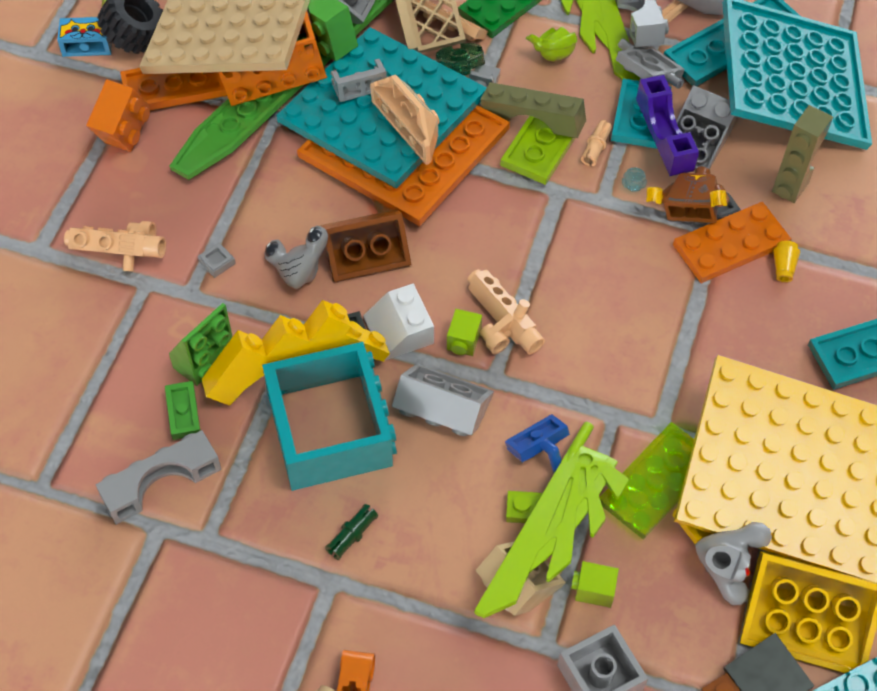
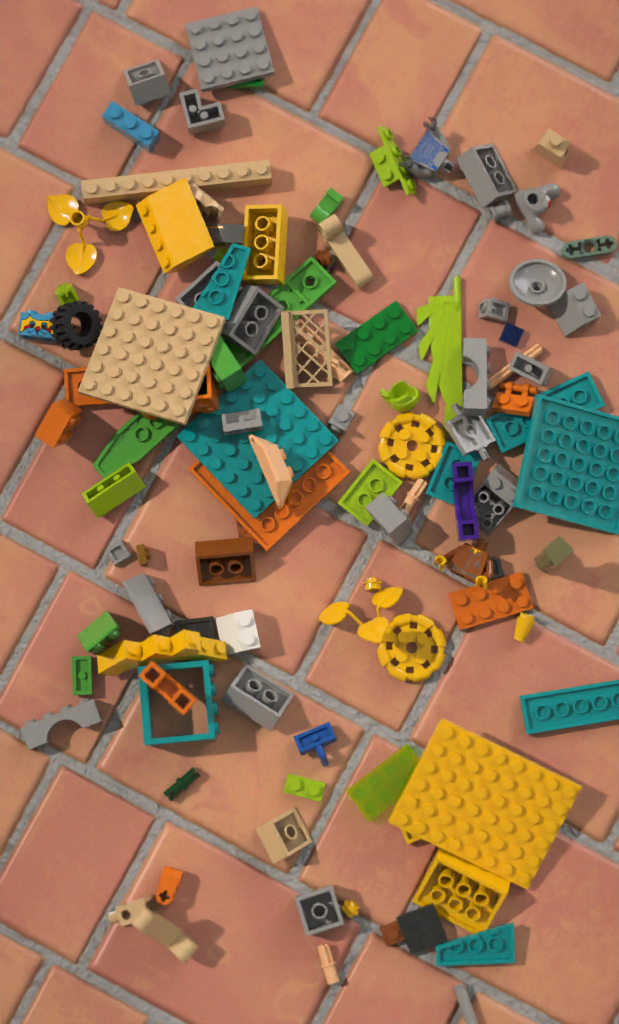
camera: 10 degrees right, 25 degrees up
(137, 240) = (59, 535): light nougat piece -> none
(201, 184) = (113, 490): none -> lime brick
(251, 252) = (143, 554): none -> pearl gold plate
(259, 297) = (148, 603): none -> light grey slope
(292, 365) = (168, 687): none -> orange arch
(301, 262) = (174, 571): light grey head -> none
(463, 58) = (330, 409): clear green plate -> none
(464, 332) = (281, 648): lime brick -> none
(509, 315) = (313, 632): light nougat piece -> none
(552, 523) = (318, 798): lime animal -> none
(560, 112) = (370, 464): olive arch -> none
(570, 244) = (372, 584): none -> yellow plate
(579, 159) = (393, 521): none -> light grey brick
(586, 288) = (373, 630): none -> yellow plant
(587, 83) = (406, 435): none -> yellow plate
(595, 584) = (329, 849): lime brick -> none
(634, 174) = (433, 530): clear light blue plate -> none
(648, 296) = (423, 648): none -> yellow plate
(650, 665) = (350, 908): none -> yellow plate
(694, 26) = (515, 404): none -> orange plate
(728, 559) = (415, 852): light grey head -> none

